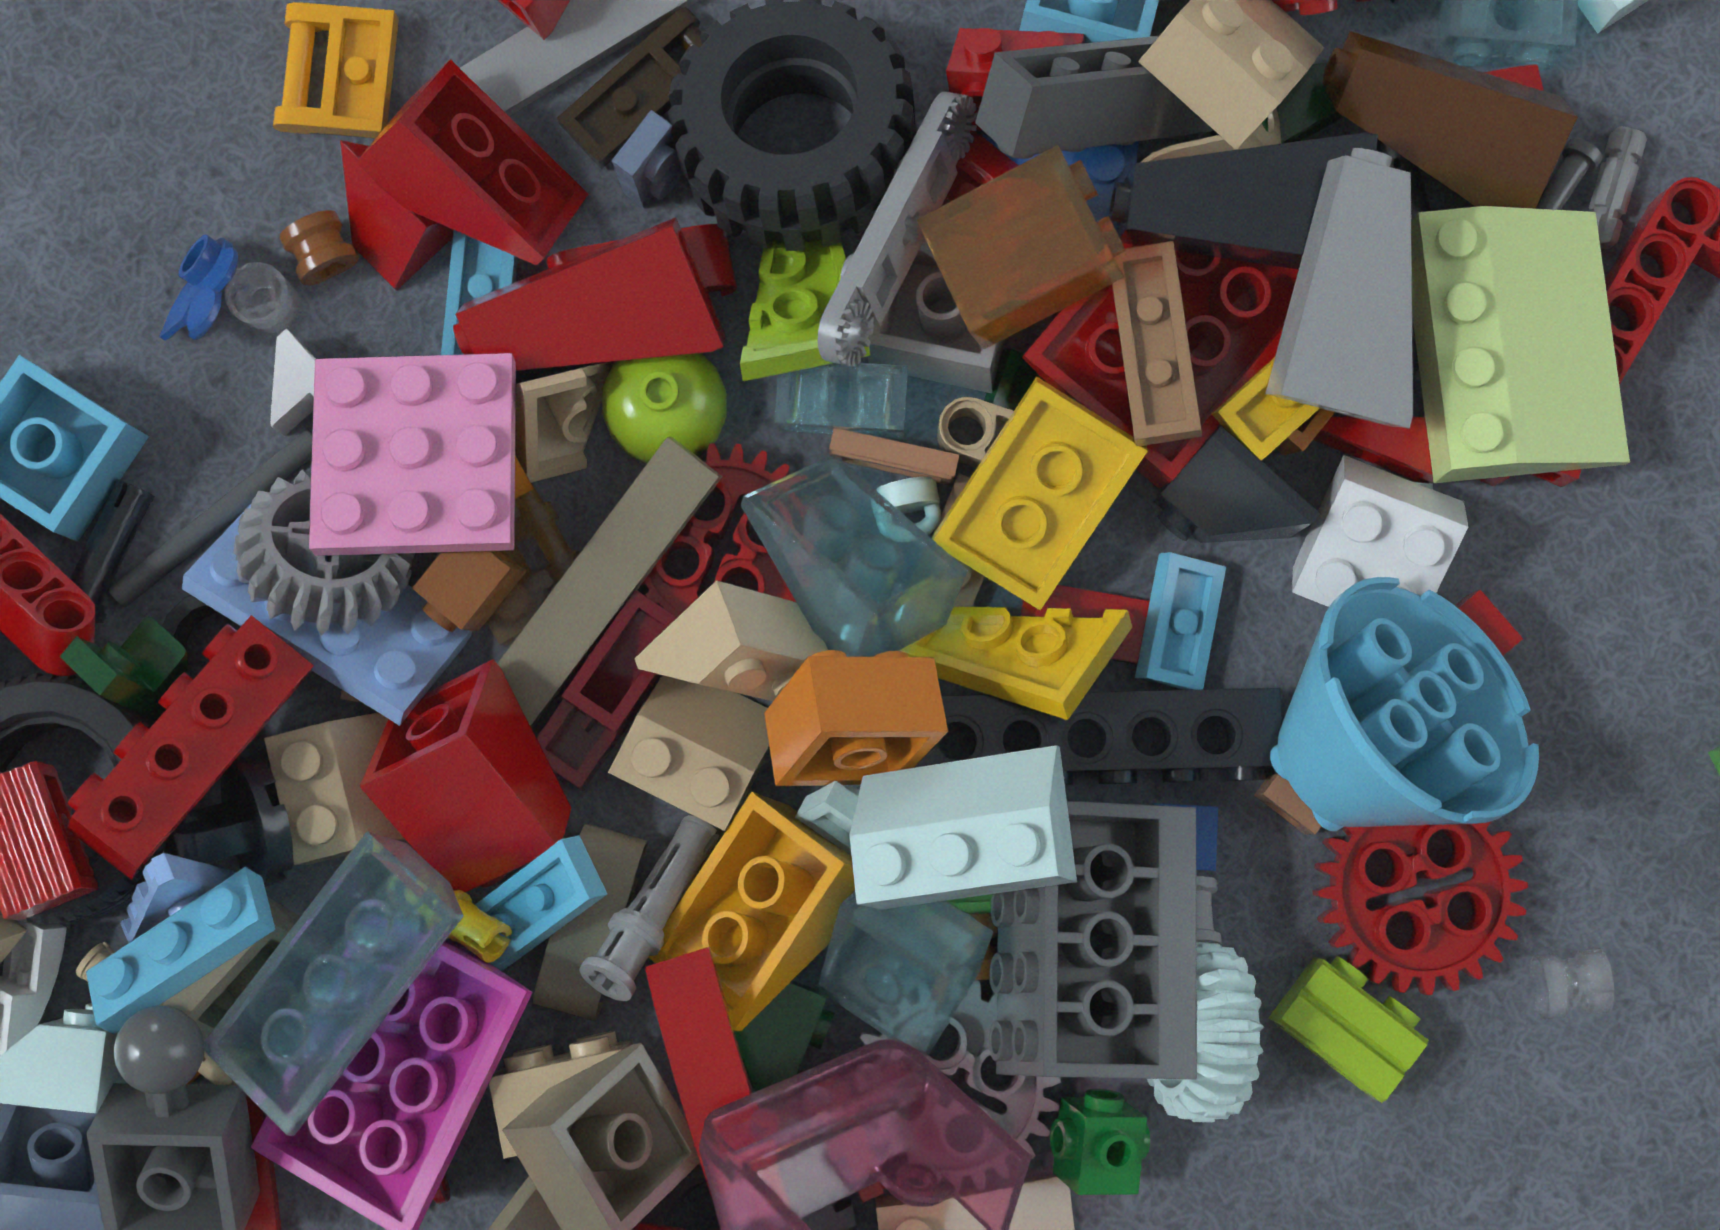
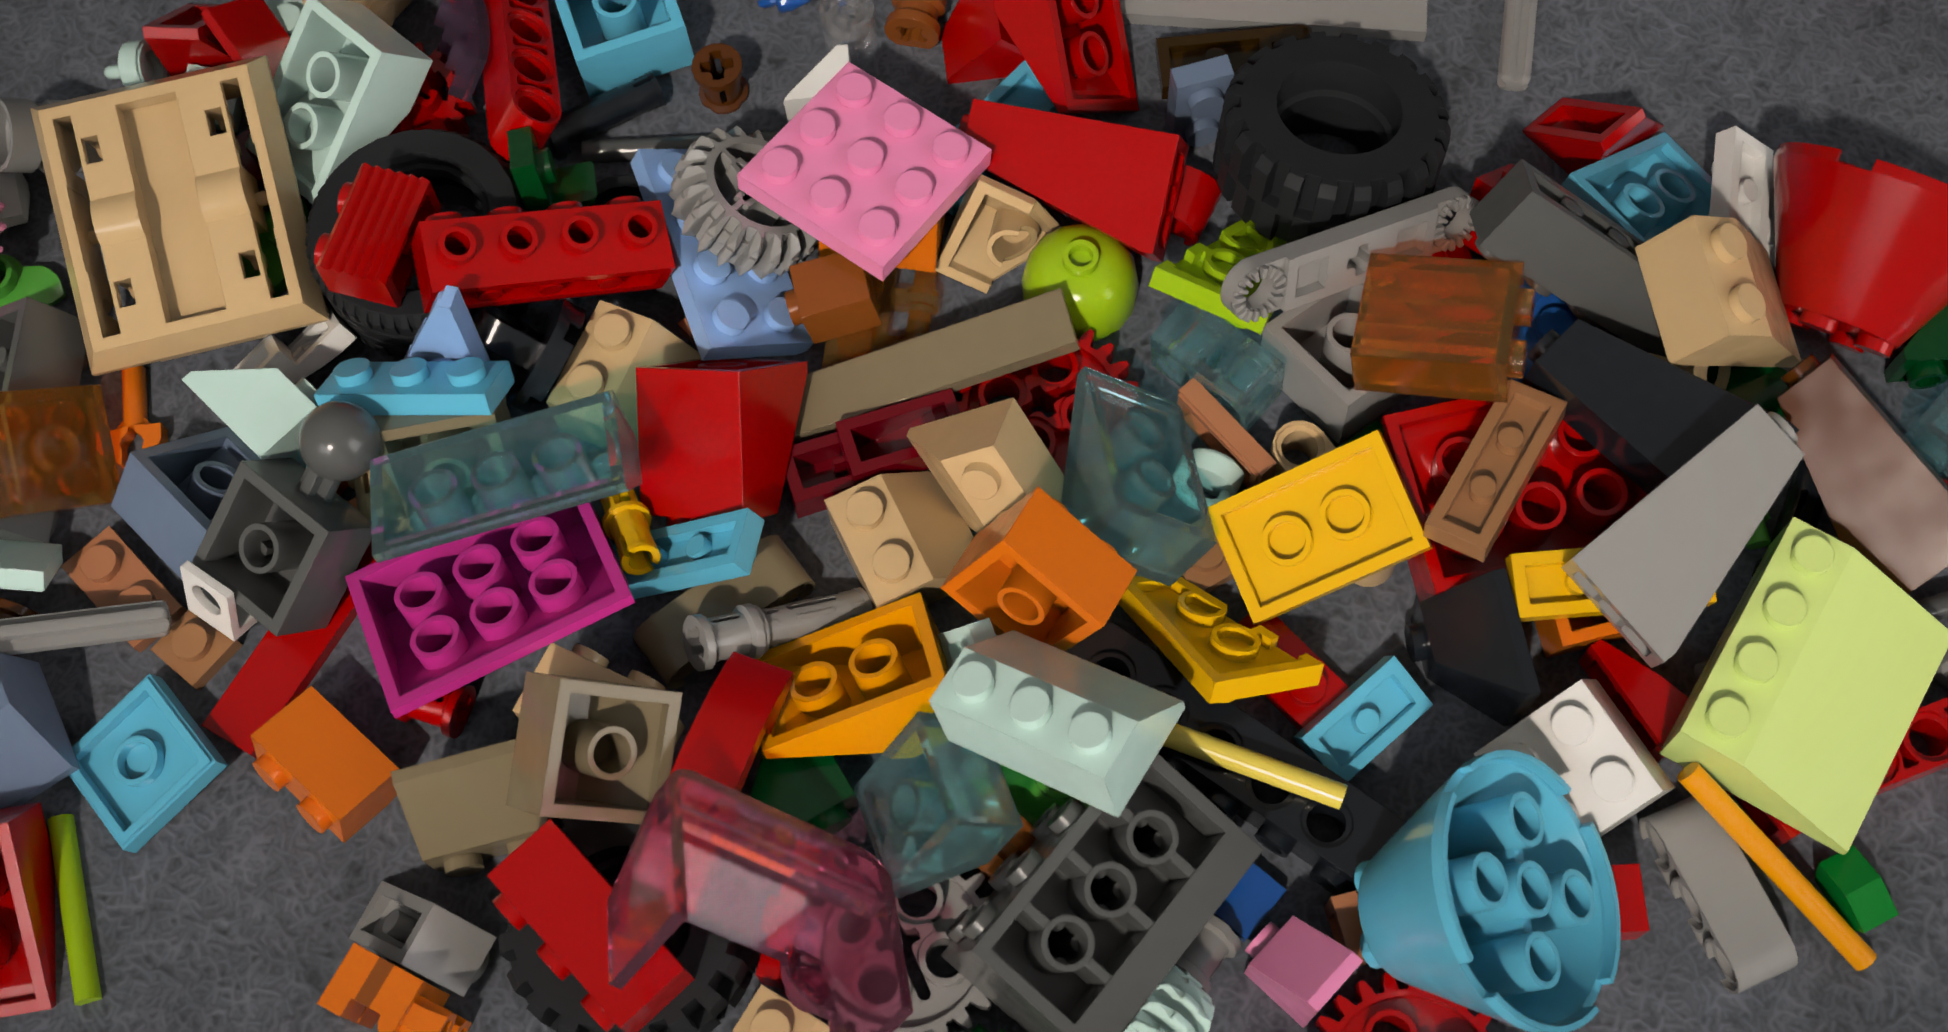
camera: 45 degrees right, 15 degrees down
(172, 447) = (732, 81): none -> reddish brown bush
(1139, 731) = (1256, 766): none -> light yellow bar
(1279, 867) = (1299, 967): none -> bright pink slope
(1548, 556) = (1722, 894): none -> light grey beam
(1578, 507) = (1776, 866): none -> light orange bar
(1649, 480) = (1855, 890): none -> green piece

